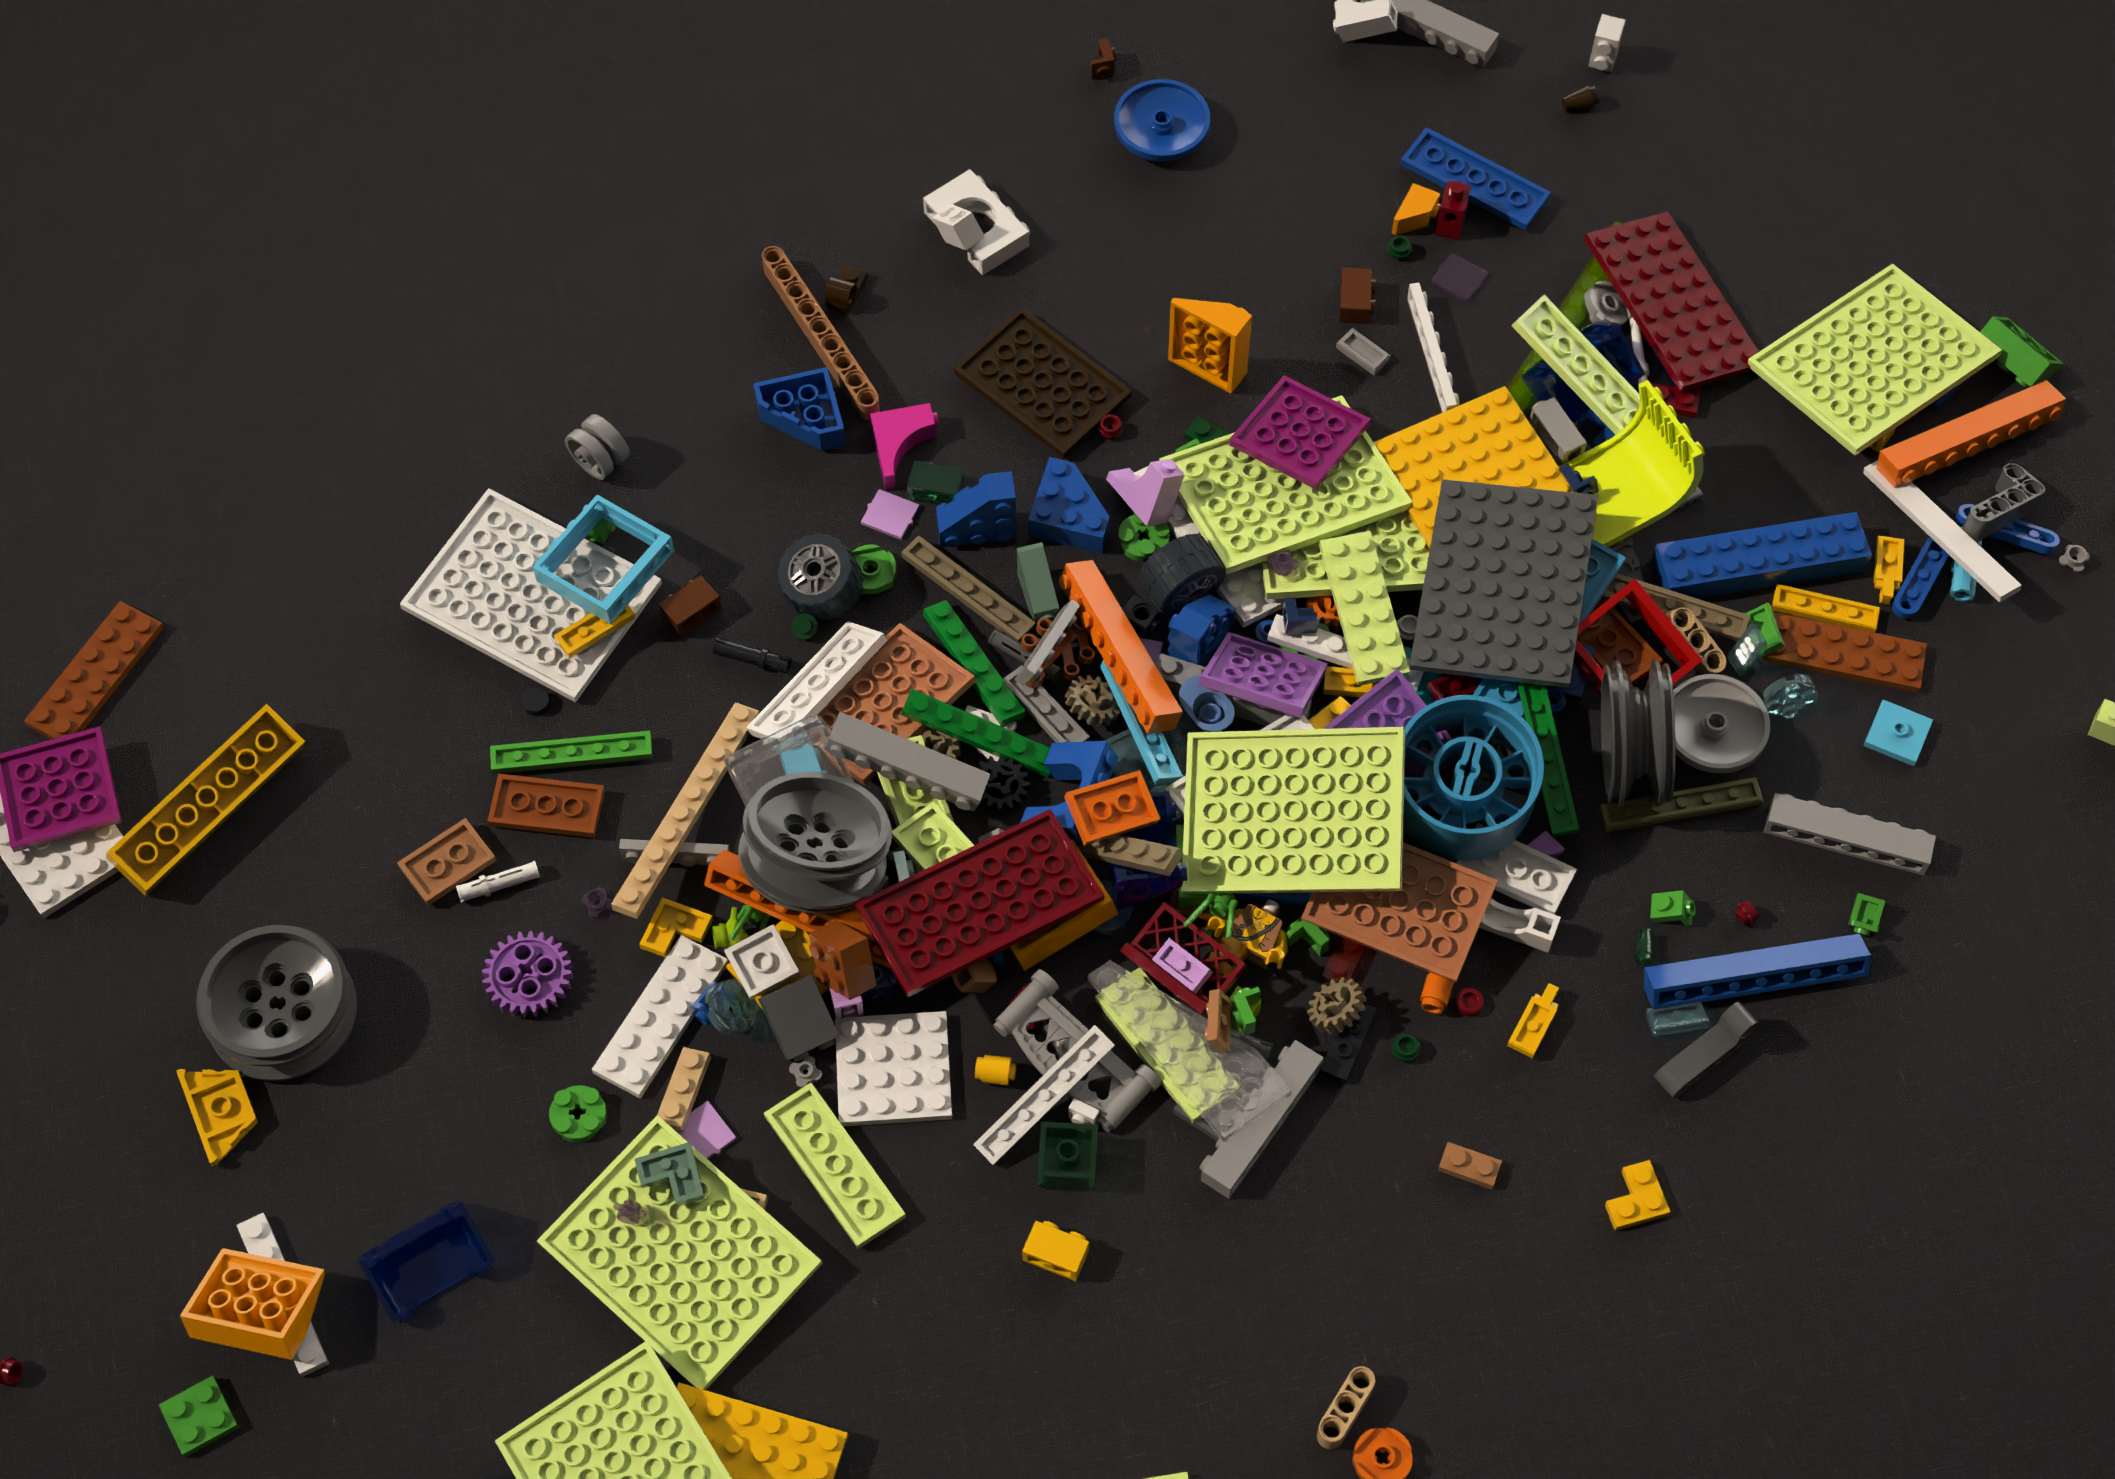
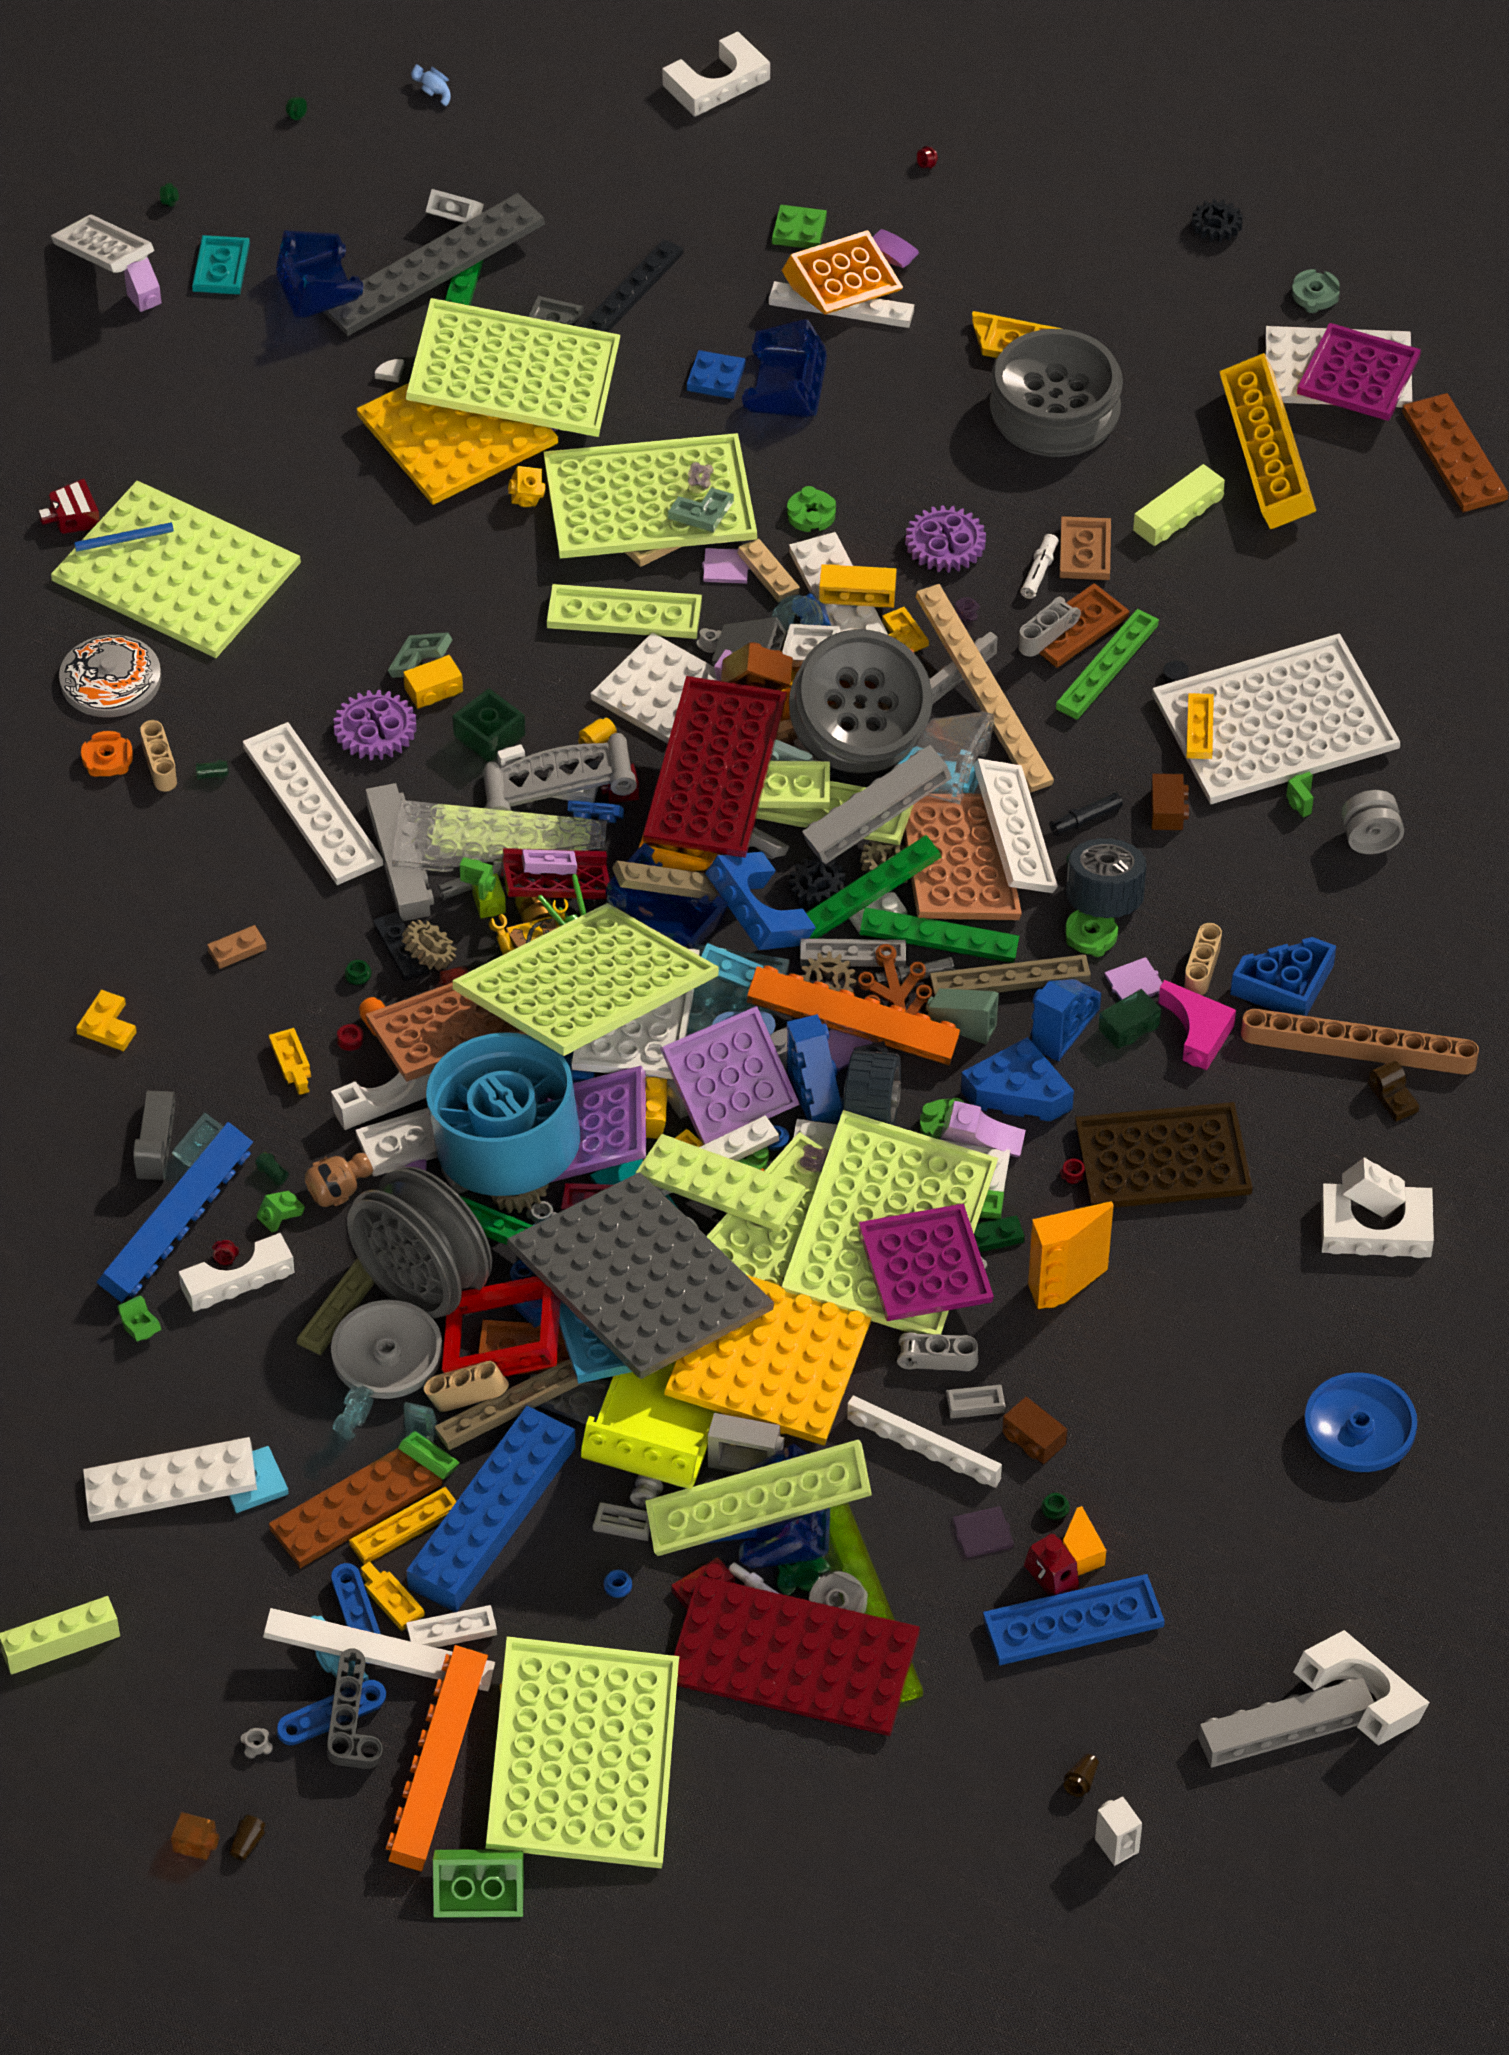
camera: 130 degrees right, 10 degrees down
(171, 1301) = (894, 248): none -> medium lavender slope
(335, 824) = (1179, 505): none -> yellowish green brick
(466, 1331) = (716, 374): none -> blue plate
(558, 806) = (1047, 626): none -> light grey piece
(634, 580) = (1246, 715): medium azure window -> none
(653, 985) = (857, 585): none -> yellow brick
(760, 1364) = (526, 486): none -> yellow brick
(840, 467) = (1203, 958): none -> tan beam
(1033, 1295) = (418, 648): none -> sand green plate
(1044, 1094) = (543, 734): white plate -> none
(1052, 637) = (894, 959): light grey plate -> none
(1086, 990) = (604, 811): none -> blue plate
(1105, 64) = (1476, 1438): reddish brown bracket -> none
(1112, 807) = (707, 886): orange plate -> none
(1122, 1248) = (361, 734): none -> medium lavender gear
(1219, 1021) = (484, 848): medium nougat plate -> none
(1273, 1237) = (312, 803): none -> white plate
(1298, 619) = (753, 1131): dark blue panel -> none
(1314, 1350) = (212, 769): none -> clear green pin
(1347, 383) = (950, 1351): none -> light grey piece
(1575, 481) = (681, 1404): dark blue bracket -> none
(1612, 885) = (334, 1178): none -> medium nougat piece
(1728, 440) = (617, 1577): none -> blue plate
(1789, 895) = (208, 1285): none -> white arch
(1850, 833) = (209, 1366): light grey brick -> none
(1870, 511) = (453, 1627): none -> white plate
(1961, 778) = (170, 1479): none -> white plate

